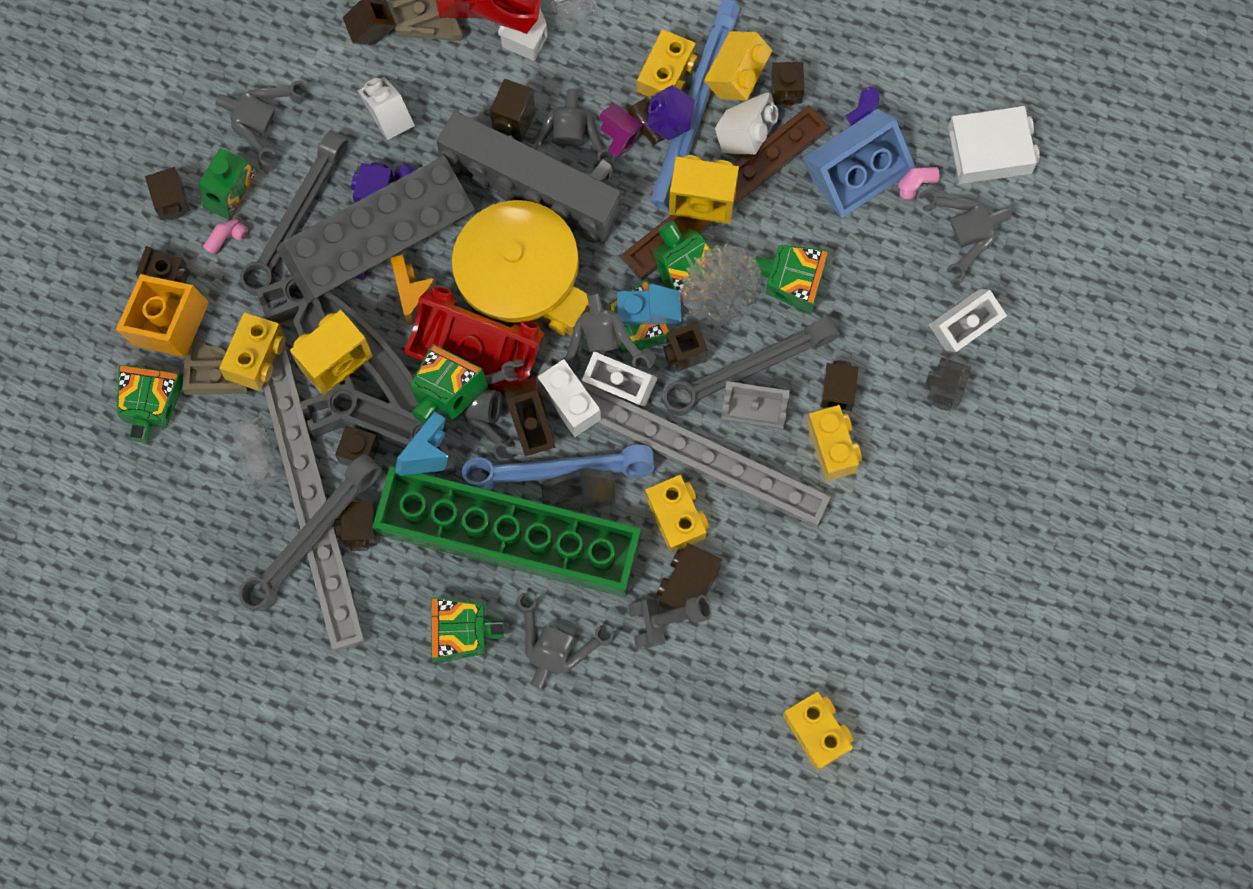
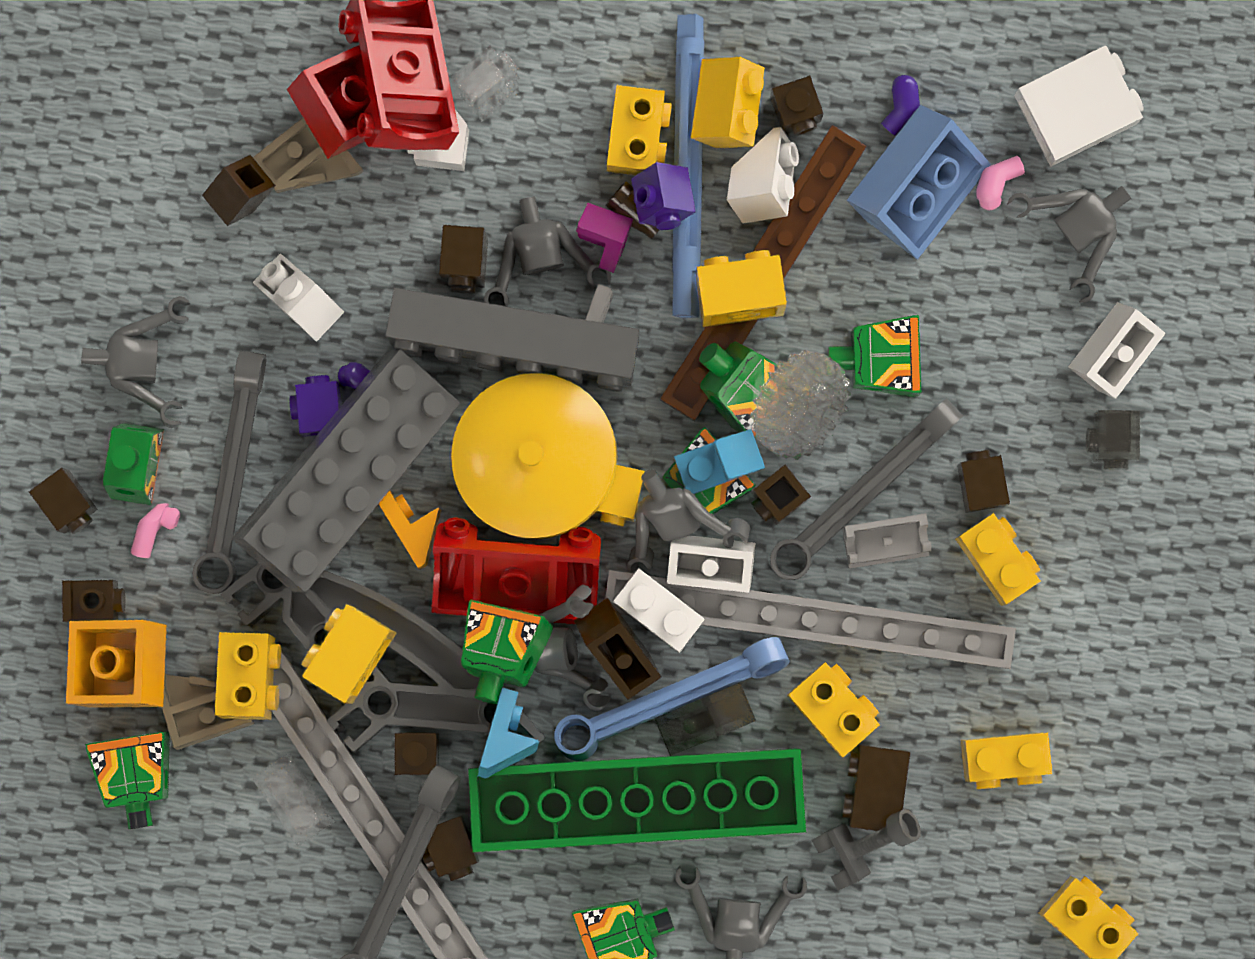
camera: 15 degrees left, 10 degrees up
(794, 589) = (1006, 757): none -> yellow brick

